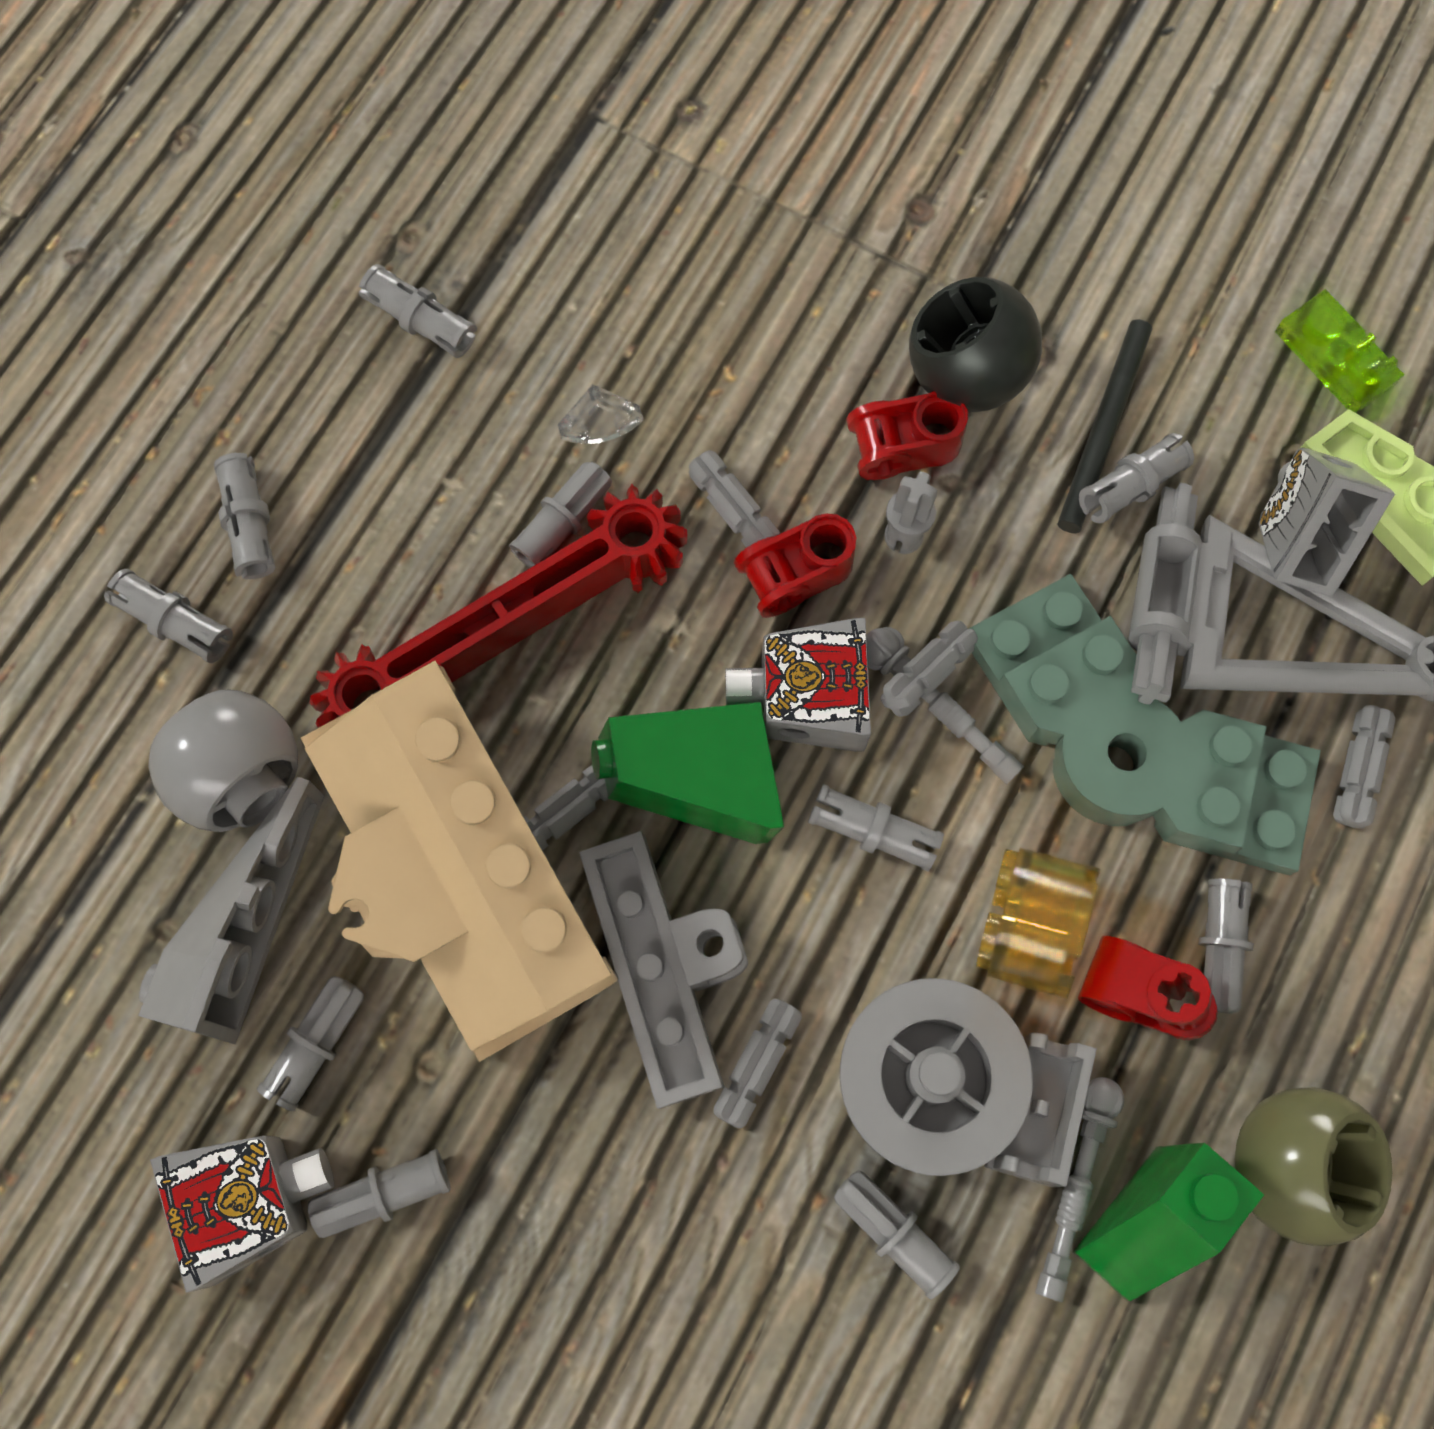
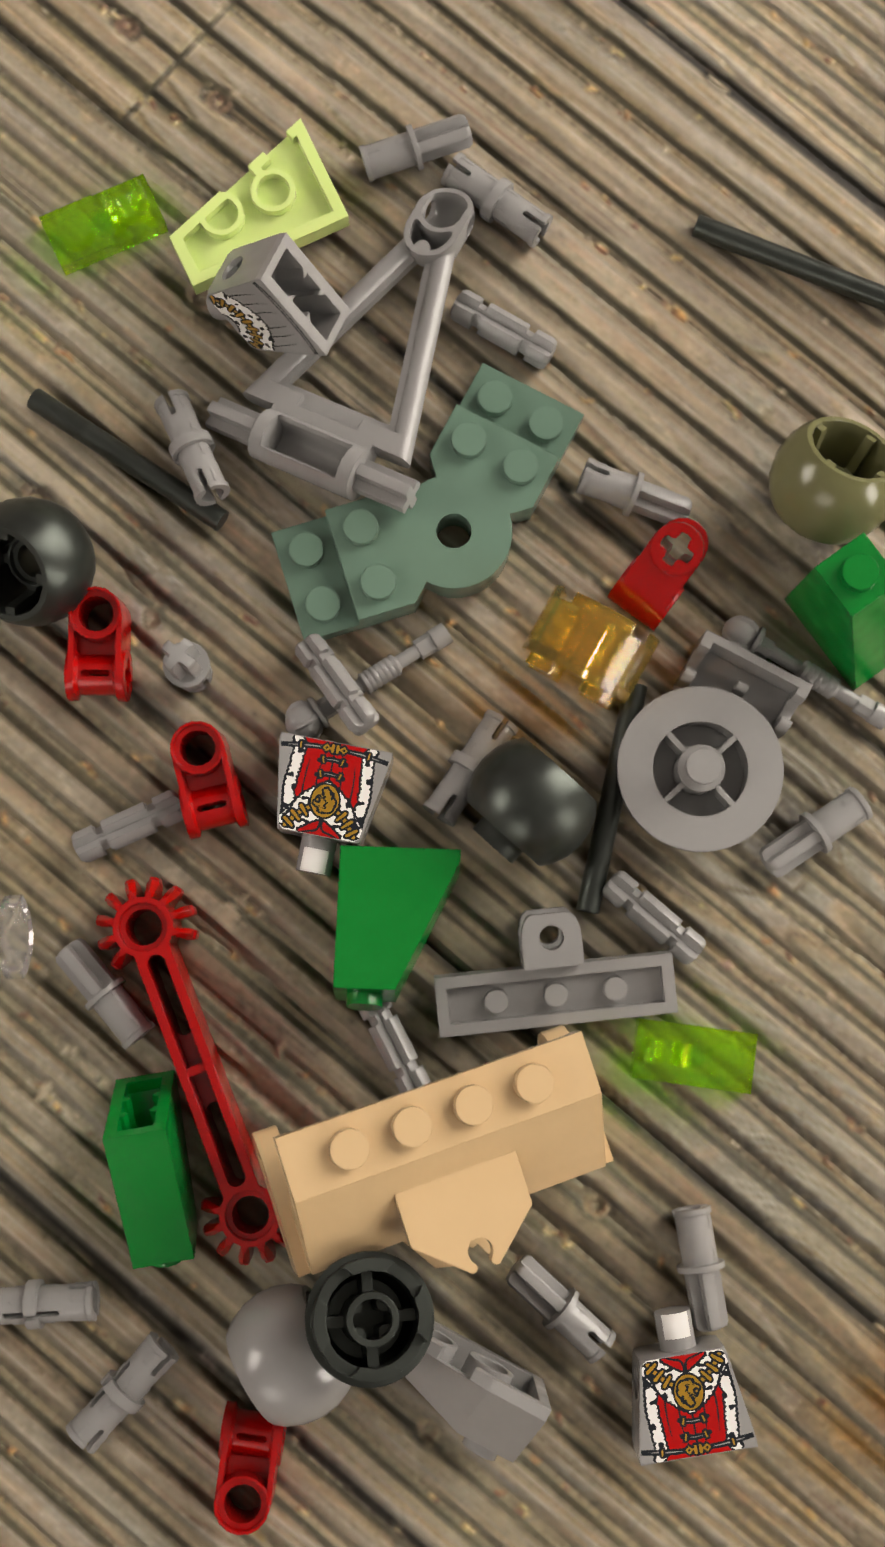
camera: 80 degrees left, 10 degrees up
(115, 748) = (250, 1456): none -> red piece
(265, 813) = (369, 1319): none -> pearl dark grey cone
(389, 590) = (151, 1170): none -> green slope
(613, 1141) = (693, 1055): none -> clear neon green plate
(849, 890) = (529, 804): none -> pearl dark grey wheel
(852, 989) = (607, 813): none -> pearl dark grey bar

